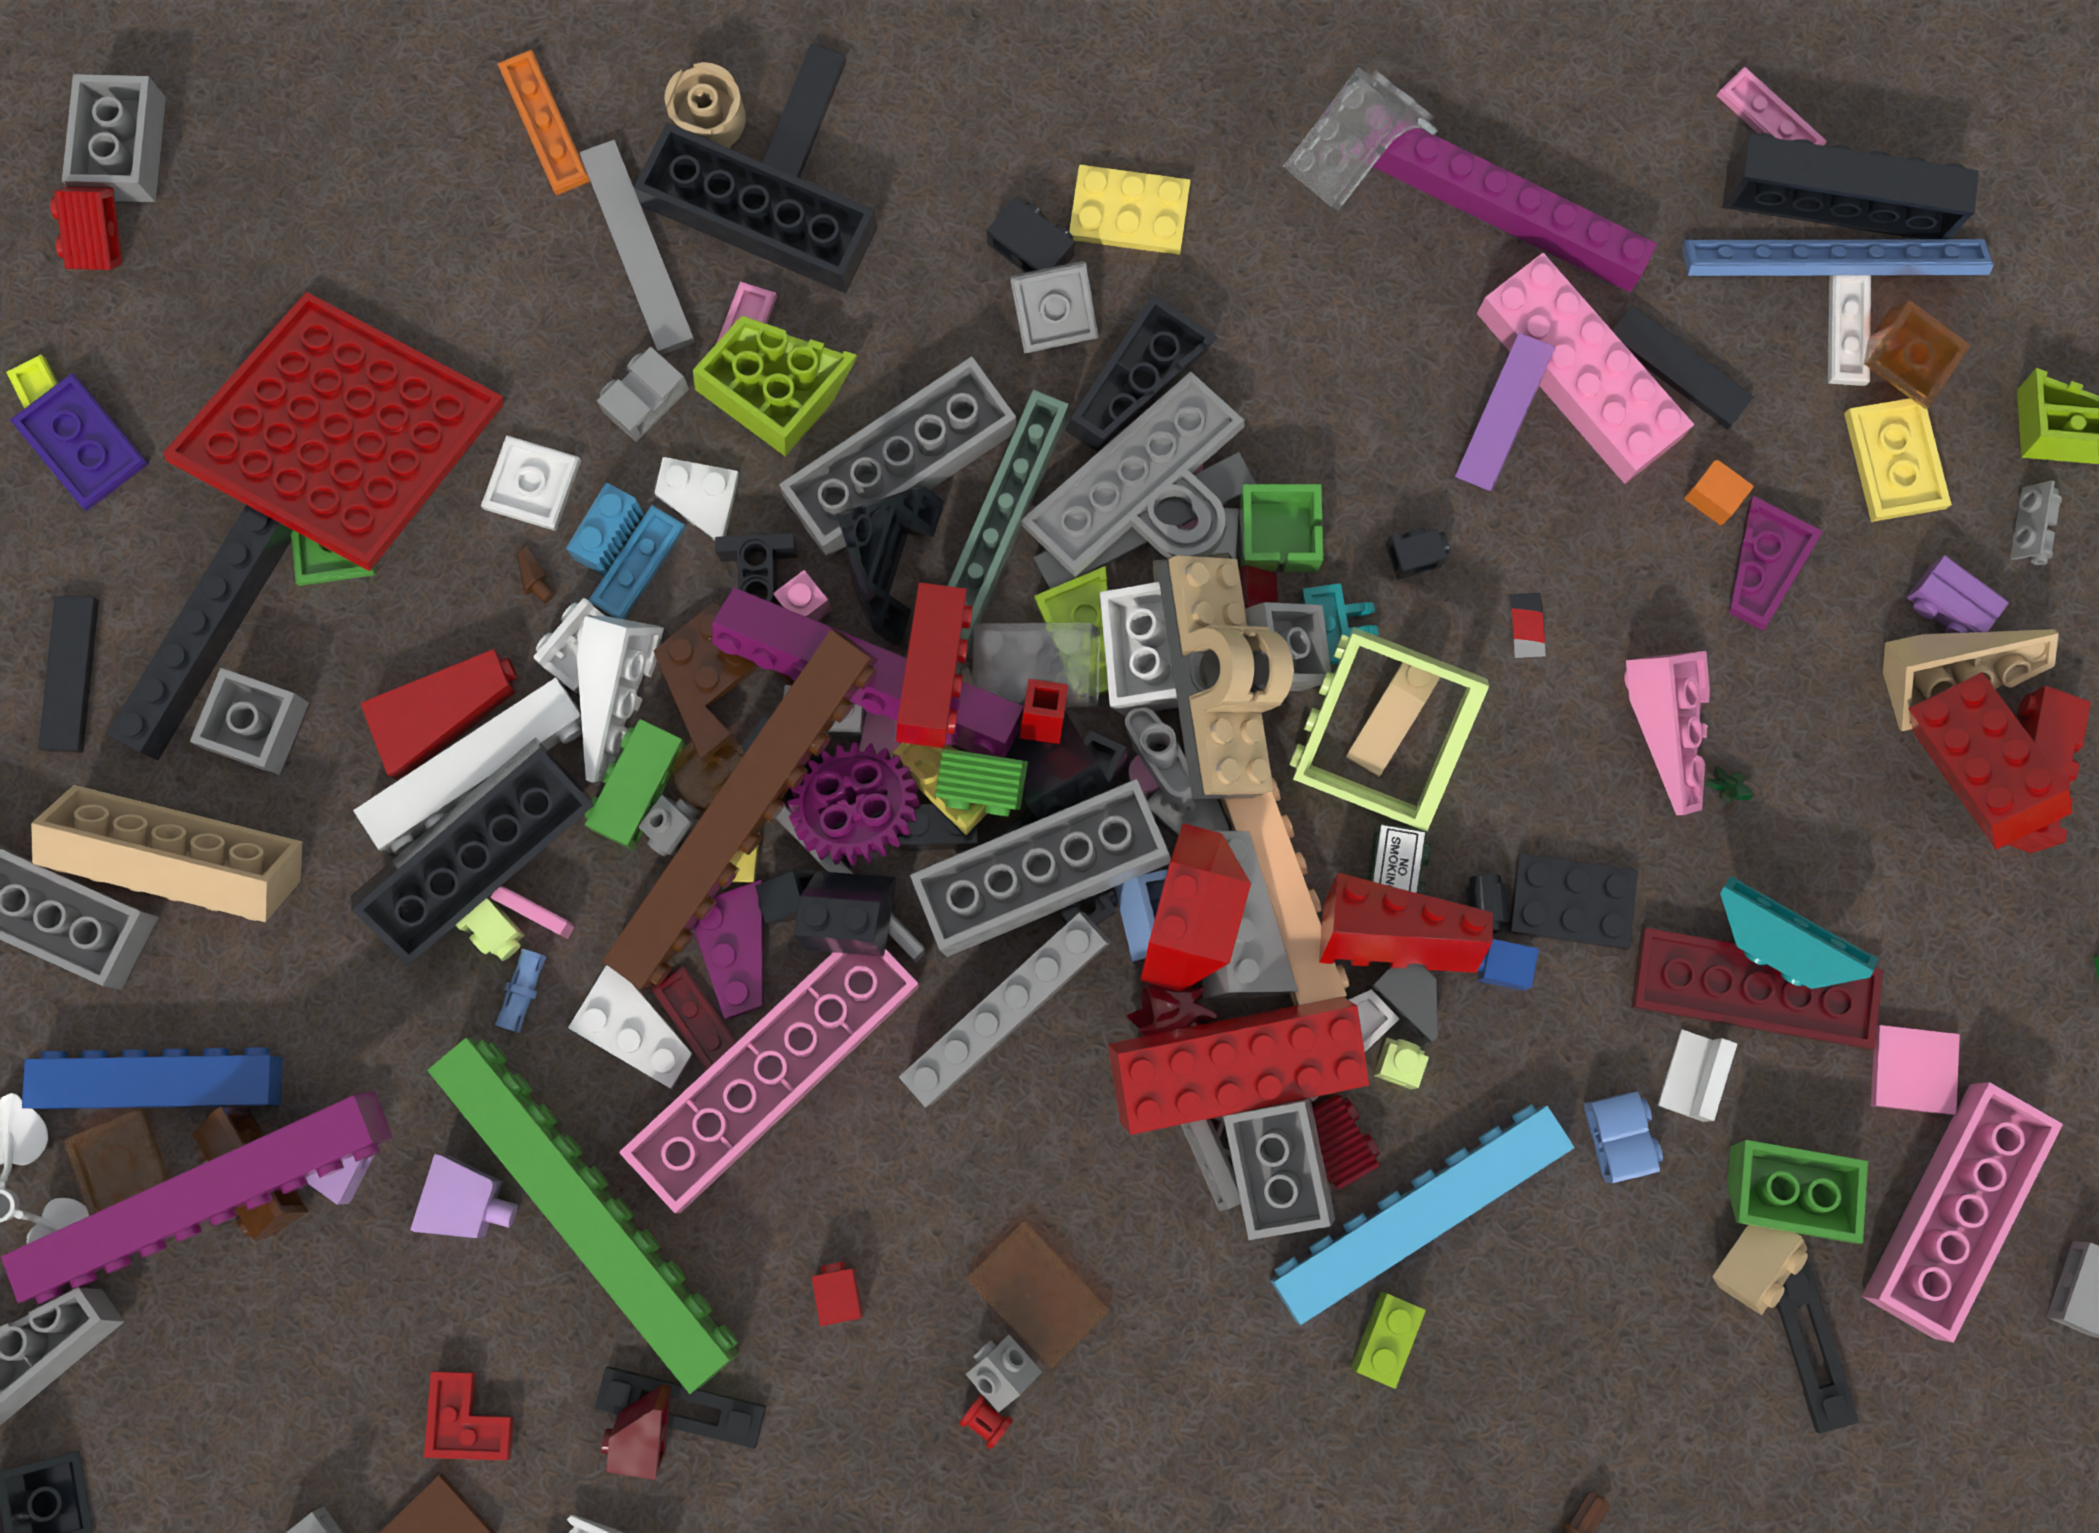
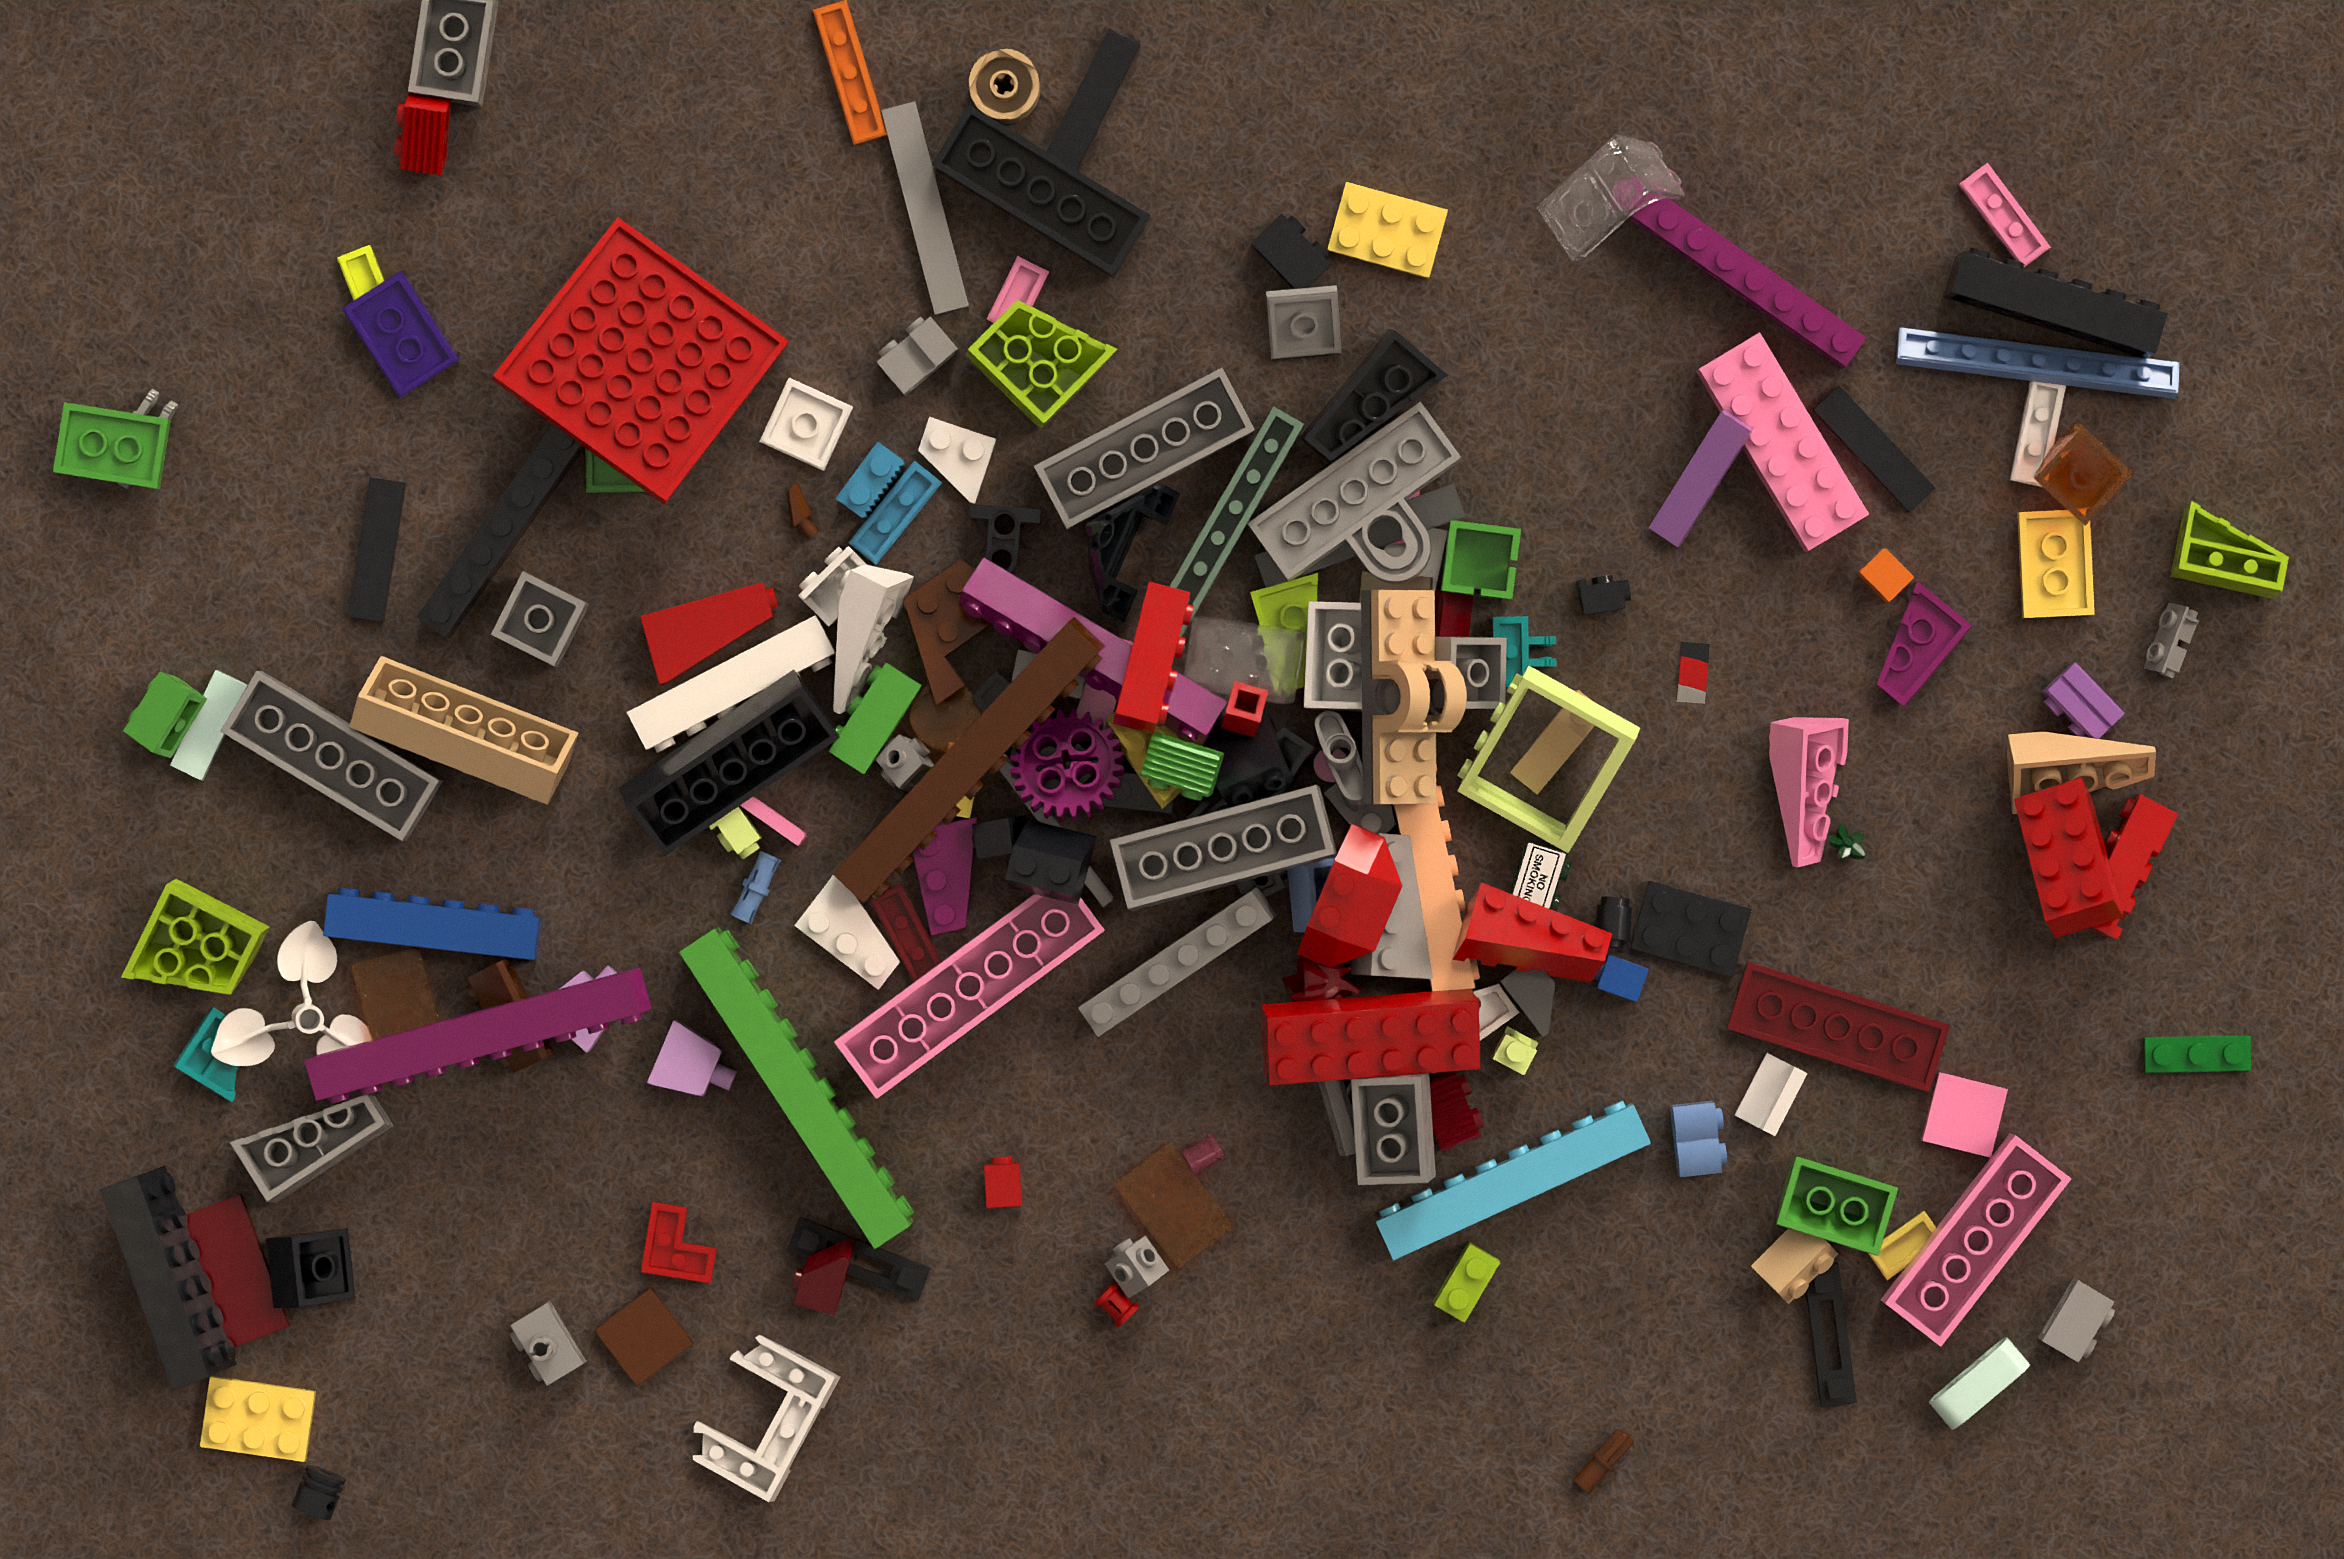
camera: 10 degrees right, 10 degrees up
(803, 597) = (1041, 570): bright pink brick -> none
(1064, 1229) = (1204, 1154): none -> clear pink bush
(1790, 942) = (1868, 988): teal wedge -> none
(1879, 1228) = (1903, 1244): none -> light yellow tile
(1996, 1380) = (1979, 1383): none -> light aqua beam

